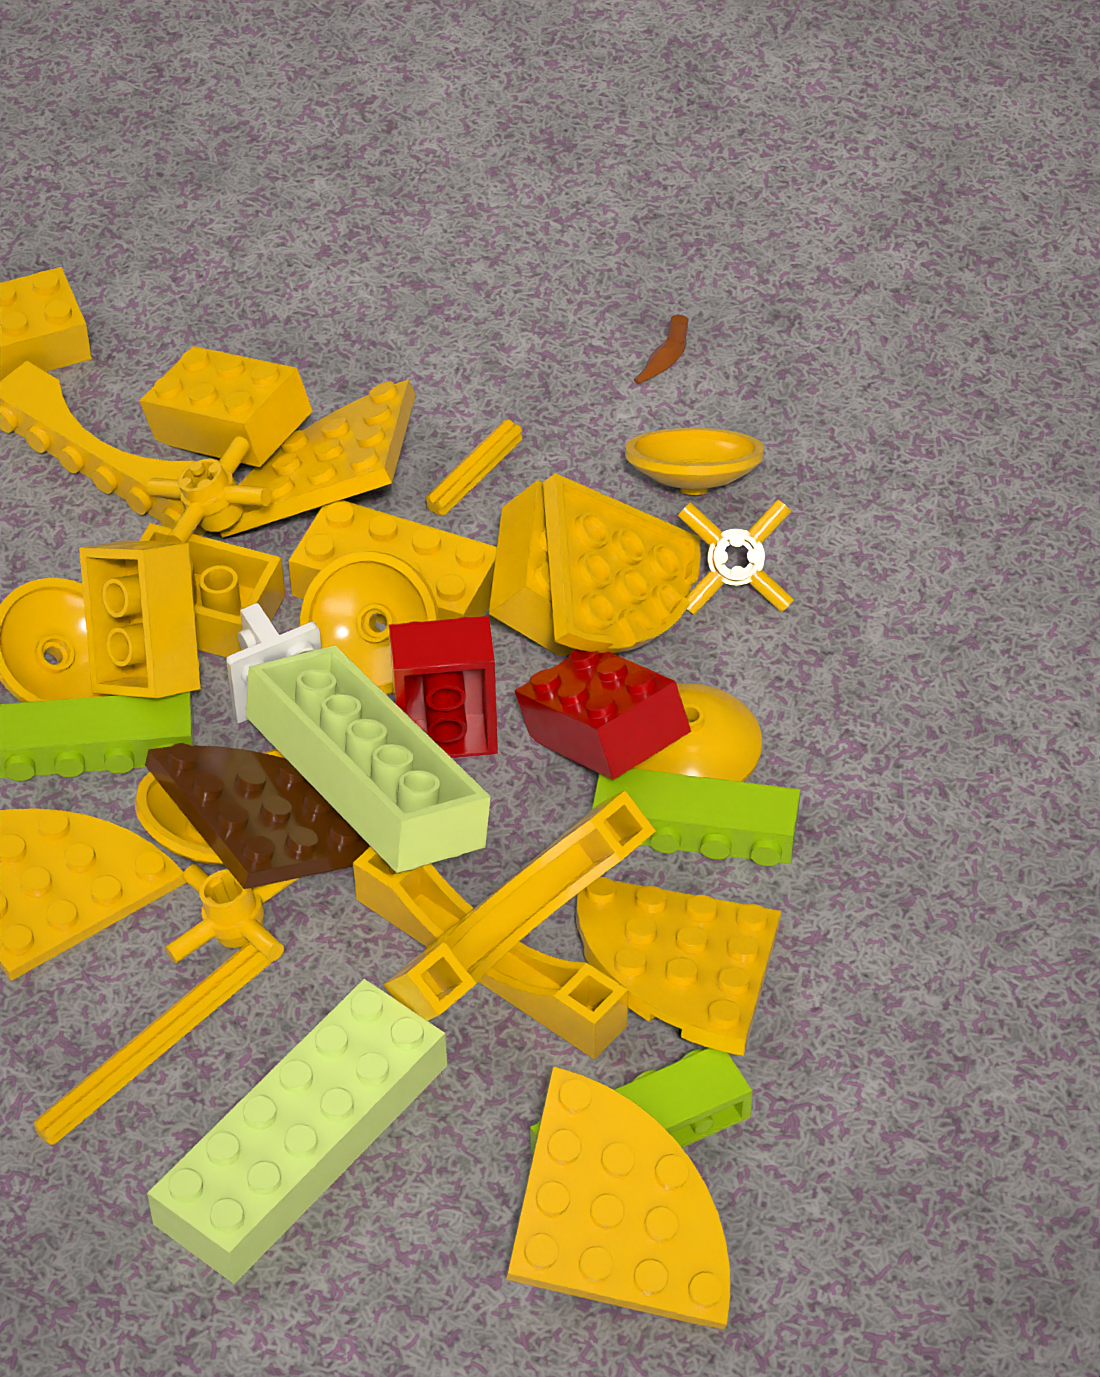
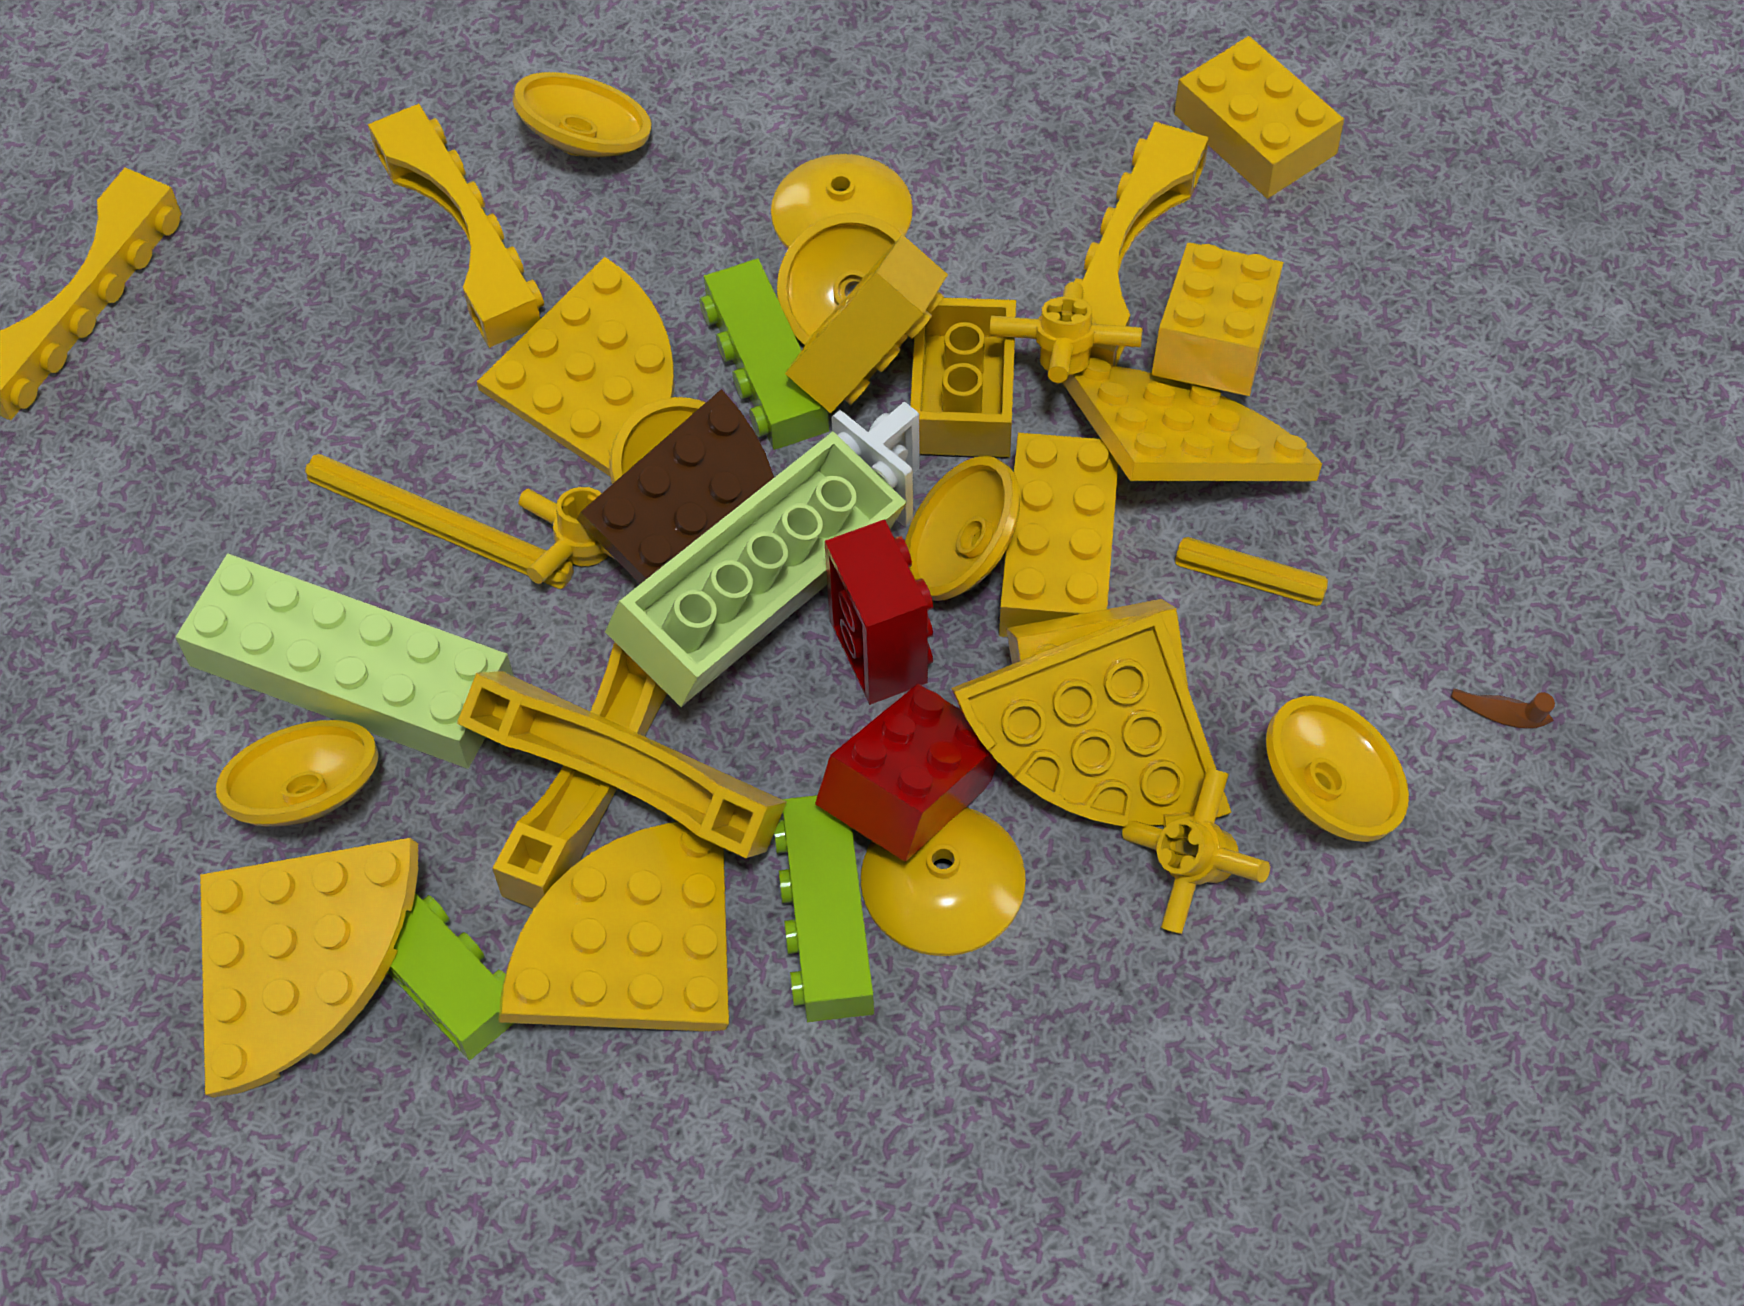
camera: 75 degrees right, 10 degrees up
(419, 1179) = (297, 773): none -> yellow dish

